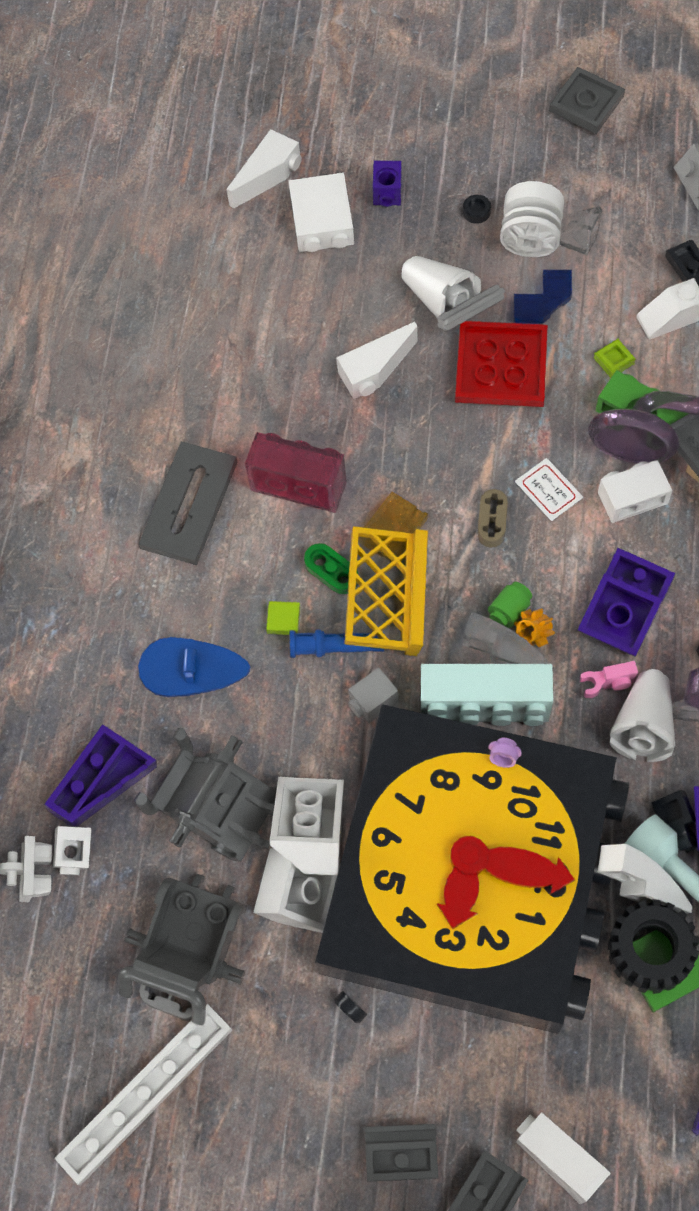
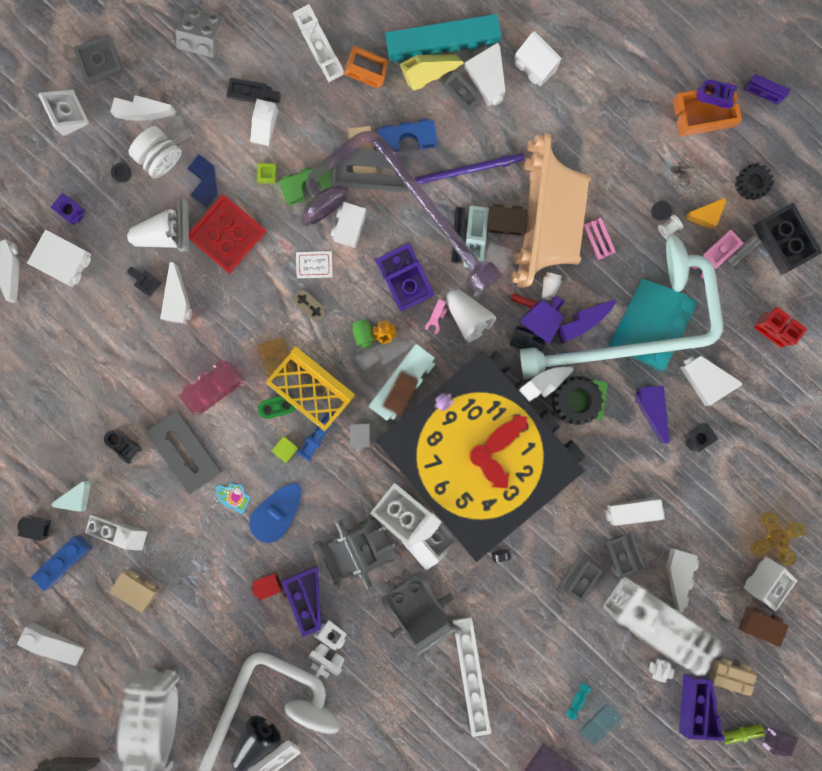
camera: 55 degrees left, 20 degrees up
(27, 495) = (116, 533): none -> white slope
(40, 418) = (75, 499): none -> light aqua slope
(82, 718) = (267, 586): none -> red brick
(144, 430) = (125, 448): none -> black piece
(173, 601) = (233, 497): none -> sticker
(368, 318) = (145, 282): none -> black plate
(471, 679) = (400, 392): none -> reddish brown brick
(496, 105) = (64, 110): none -> white slope
(568, 175) = (141, 109): none -> white slope

